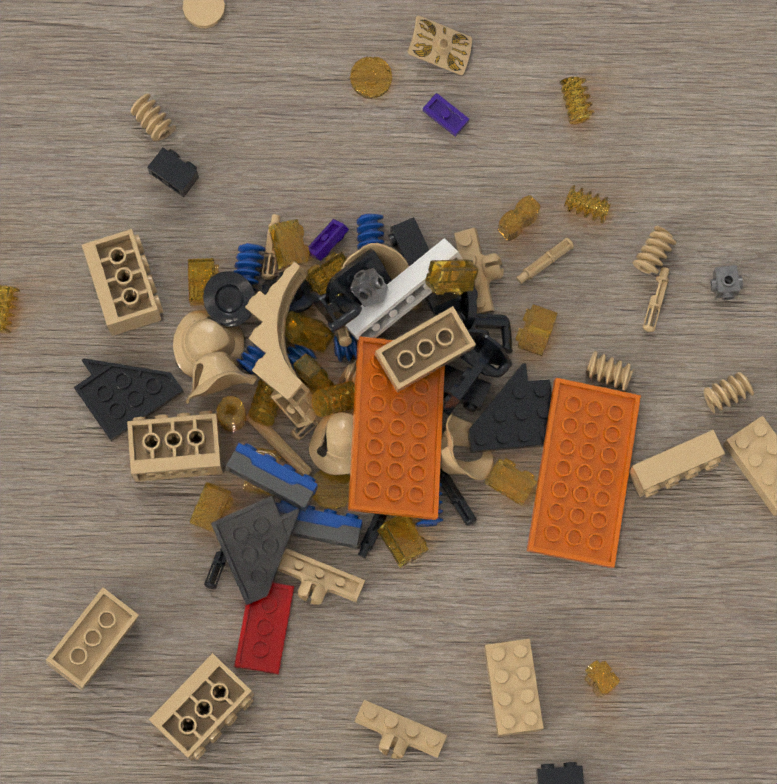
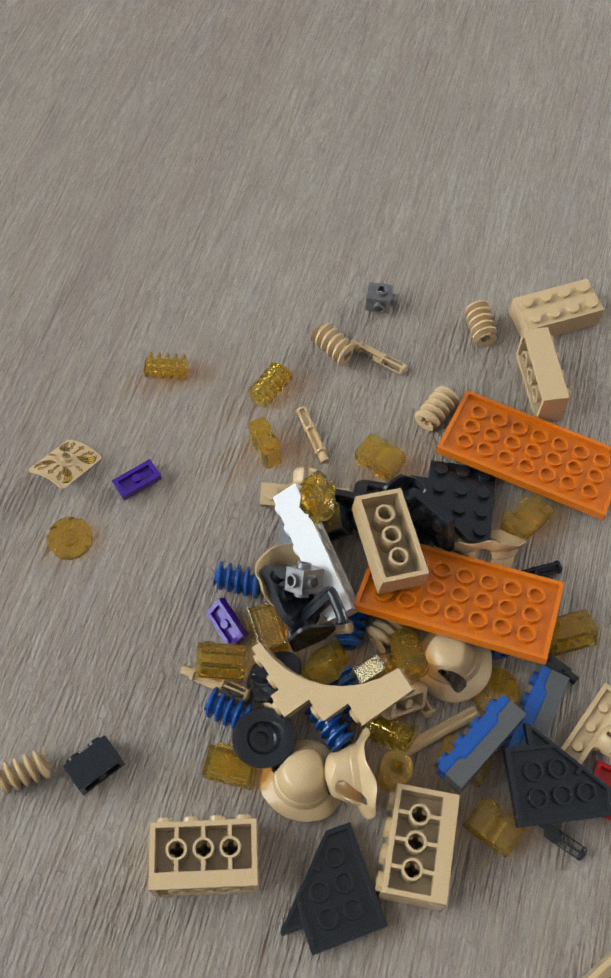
camera: 75 degrees left, 15 degrees down
(408, 240) = (254, 542): black brick -> none

